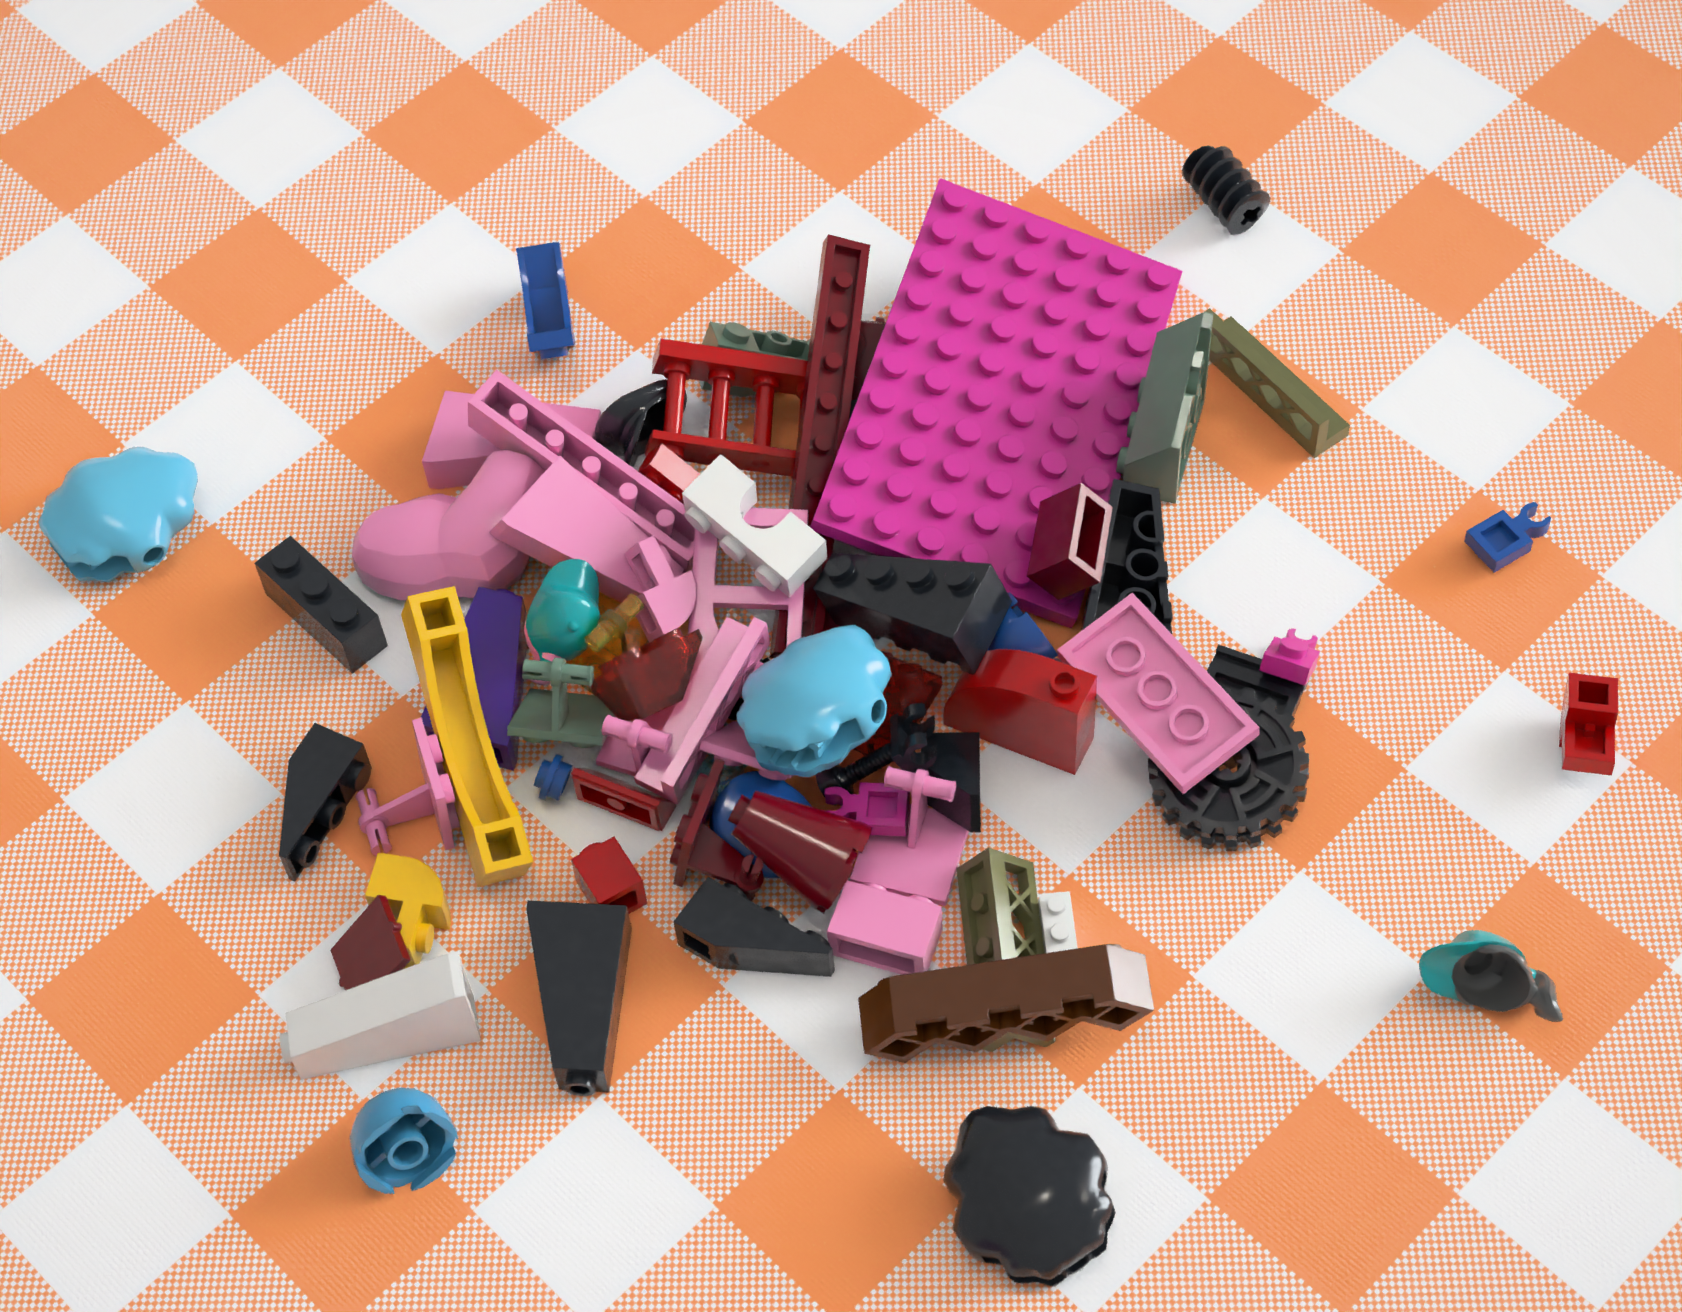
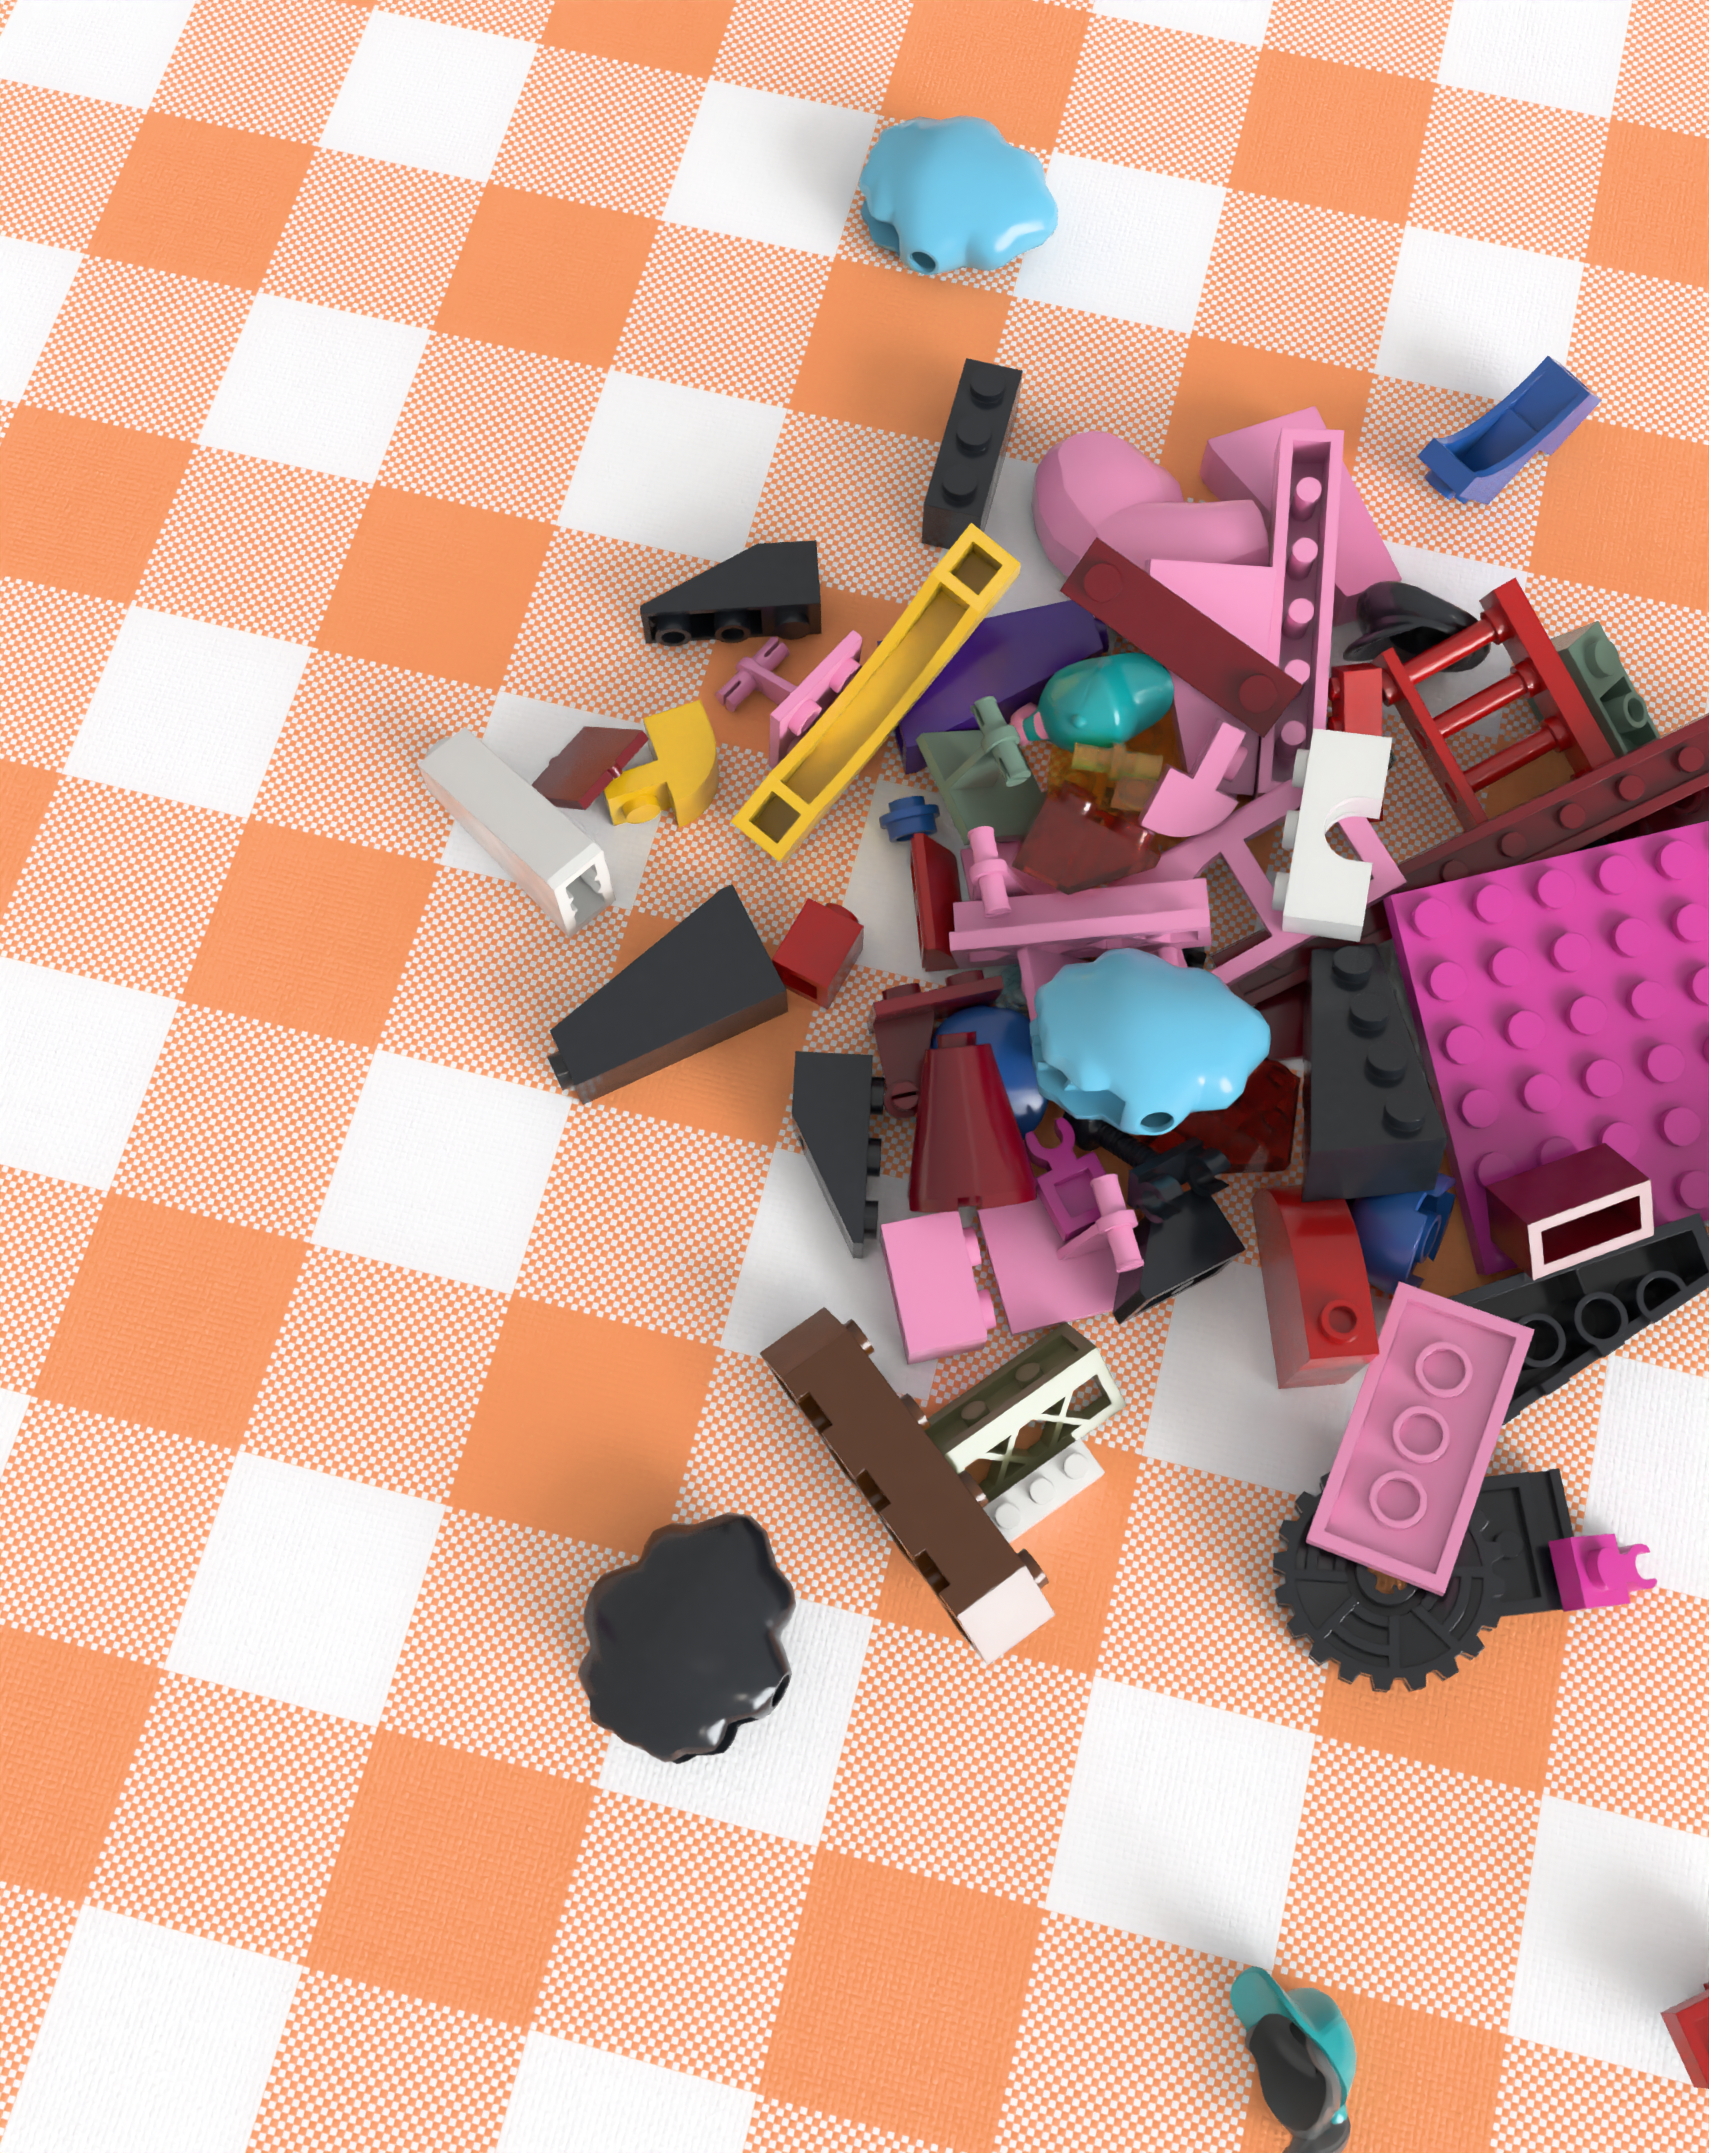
camera: 55 degrees right, 15 degrees up
(402, 1140) = (395, 927): dark azure cylinder -> none
(561, 535) = (1180, 637): none -> dark red plate

